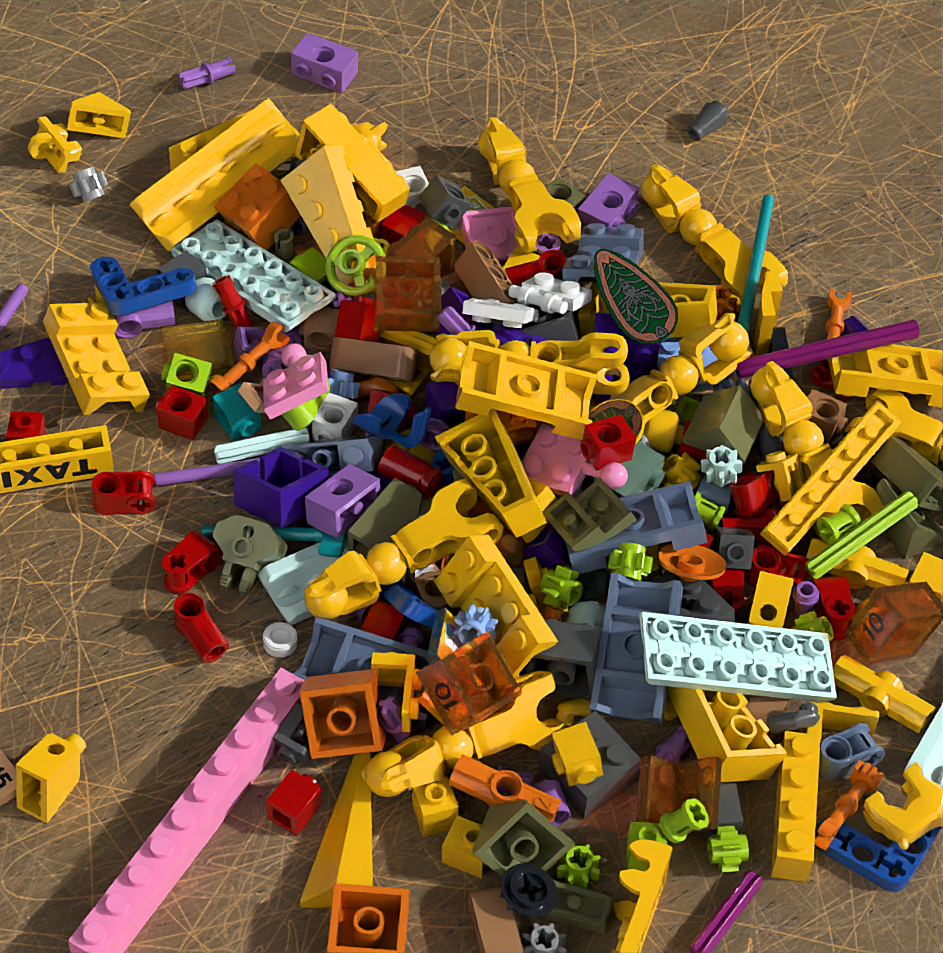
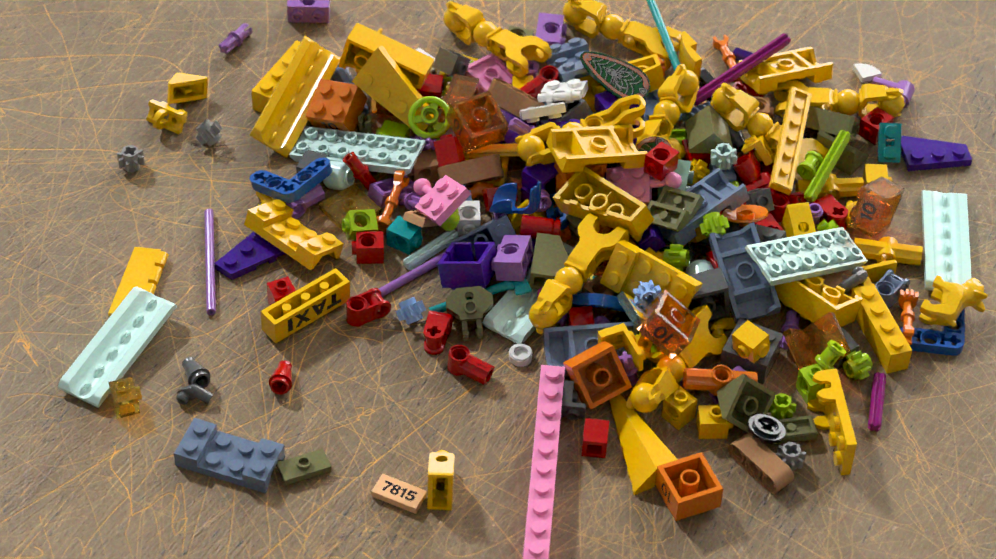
camera: 25 degrees left, 5 degrees down
(173, 520) = (410, 310): none -> light blue gear

